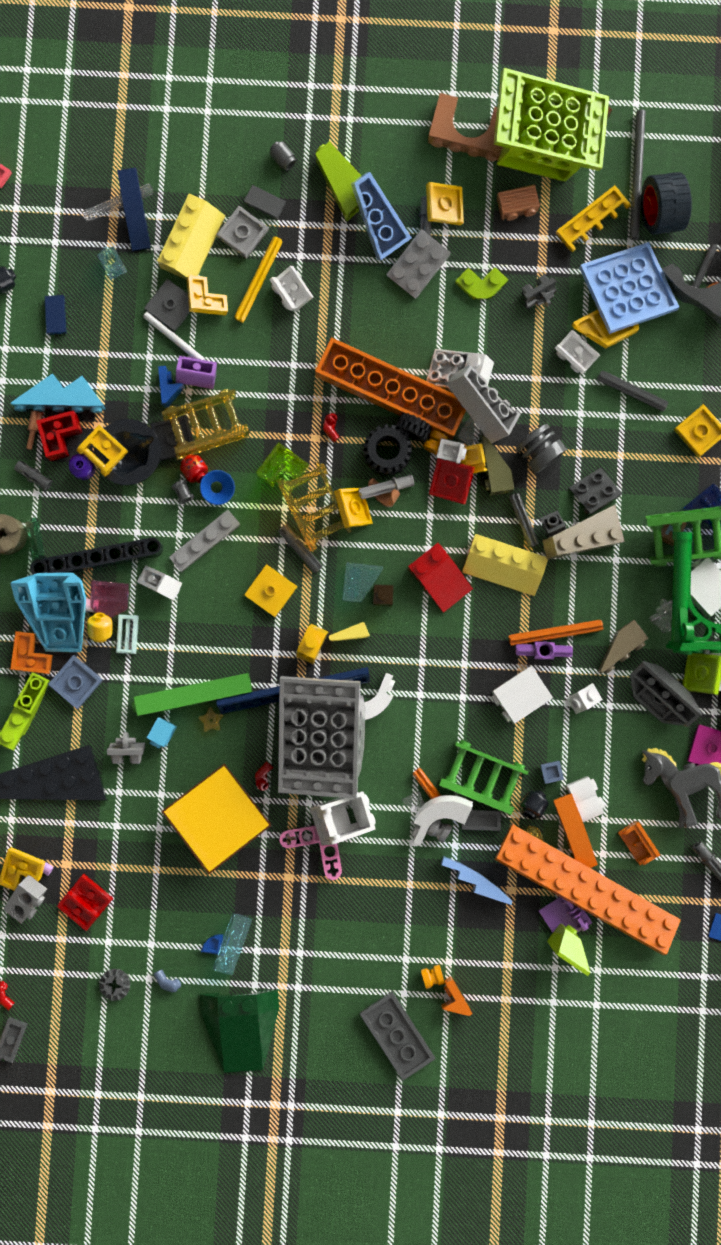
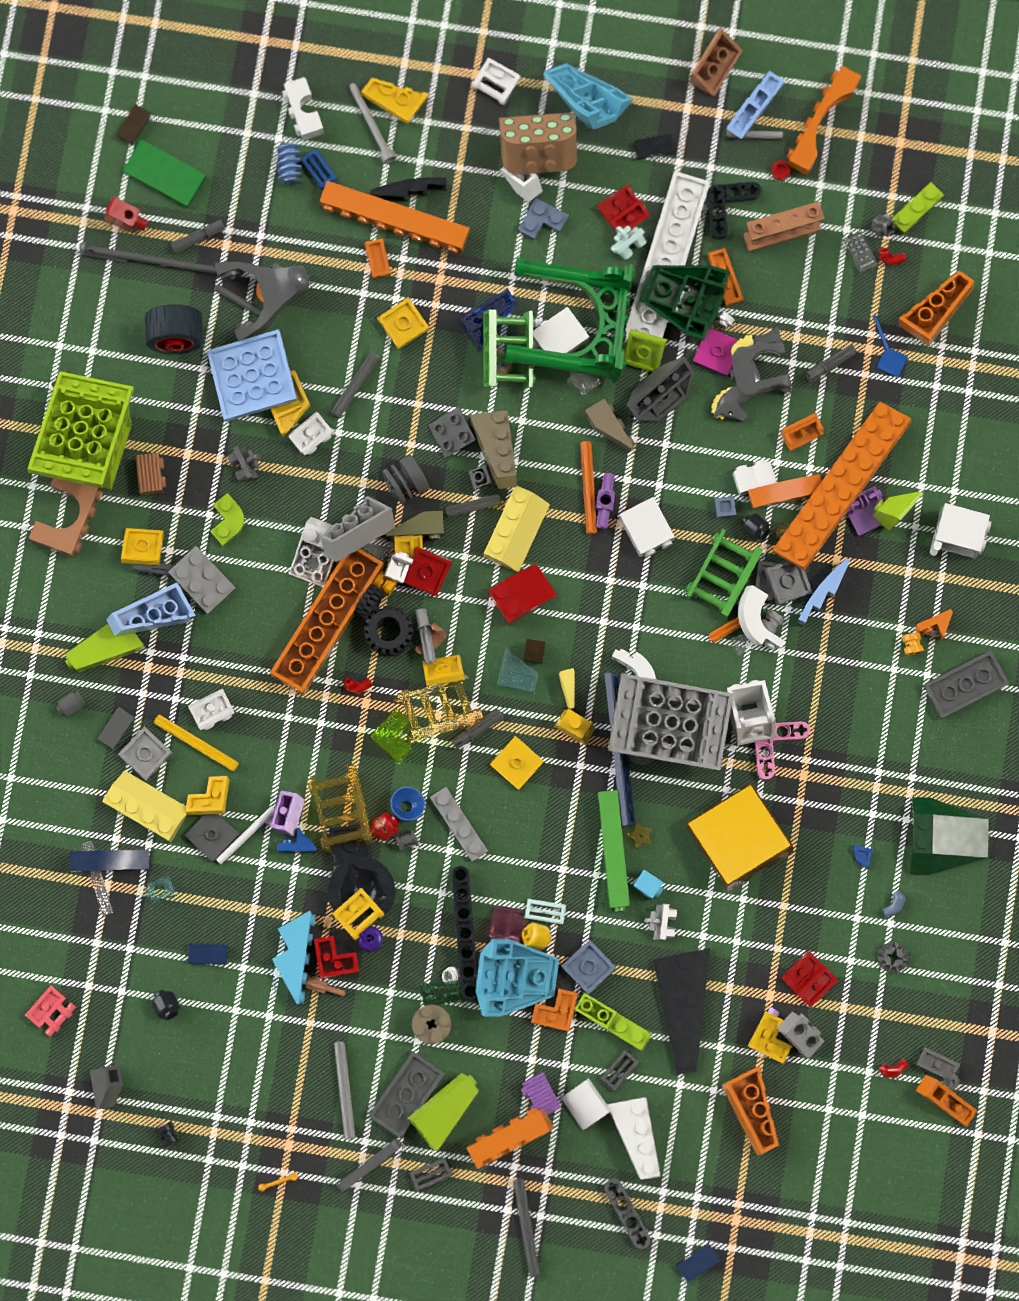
camera: 85 degrees left, 5 degrees down
(33, 475) = (372, 991): dark grey pin -> none
(54, 548) = (450, 974): none -> white plate
(159, 582) = (496, 873): white slope -> none
(232, 944) = (863, 836): clear light blue hinge -> none
(261, 776) = (702, 791): red arm -> none
(481, 842) = (787, 582): none -> tile
(554, 1016) = (960, 531): none -> white container
(584, 698) = (656, 467): white bracket -> none
(591, 217) = (173, 403): yellow hinge -> none
(637, 174) = (135, 353): dark grey piece -> none

